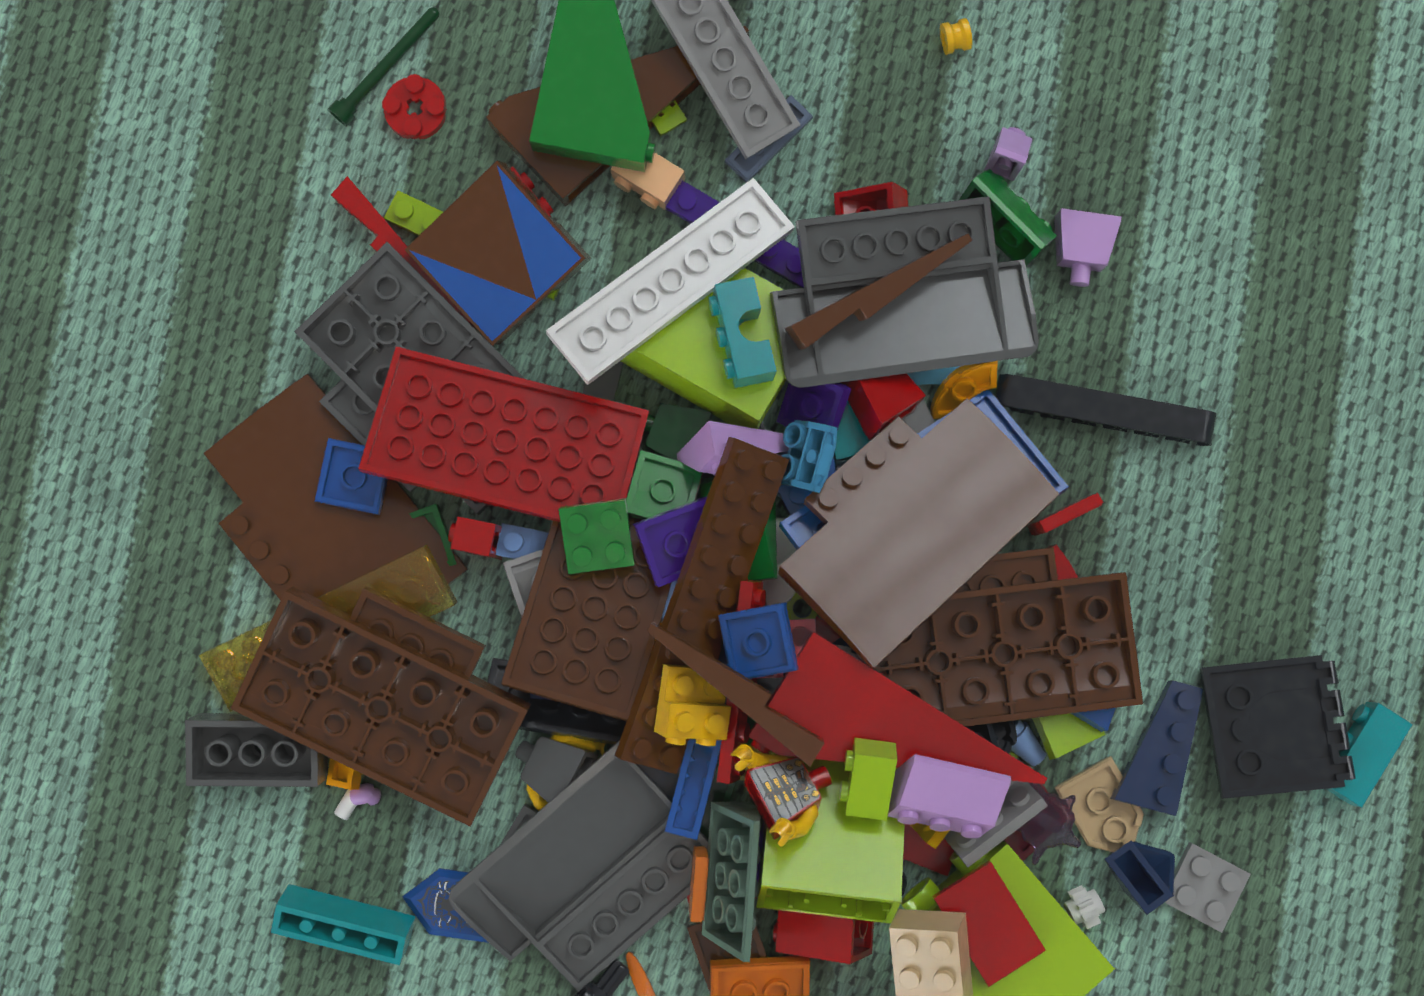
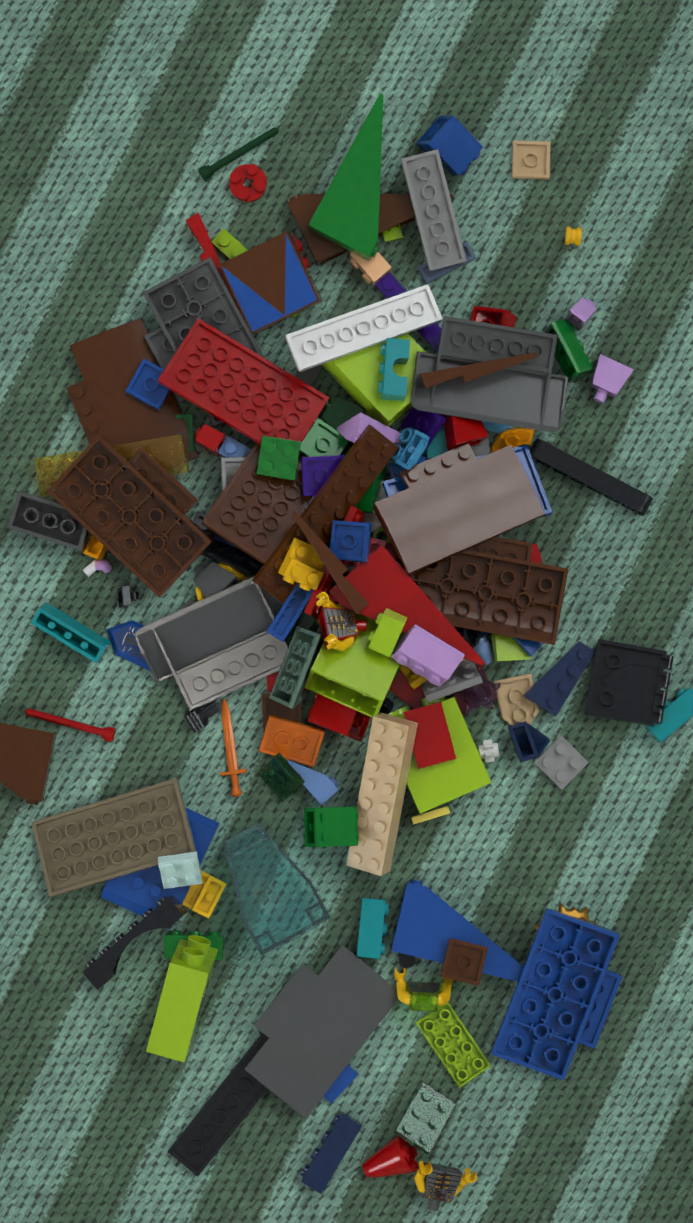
camera: 15 degrees right, 0 degrees up
(416, 835) = (125, 596): none -> black tile
(698, 884) = (276, 668): orange tile -> none
(1065, 514) = (546, 528): red tile -> none

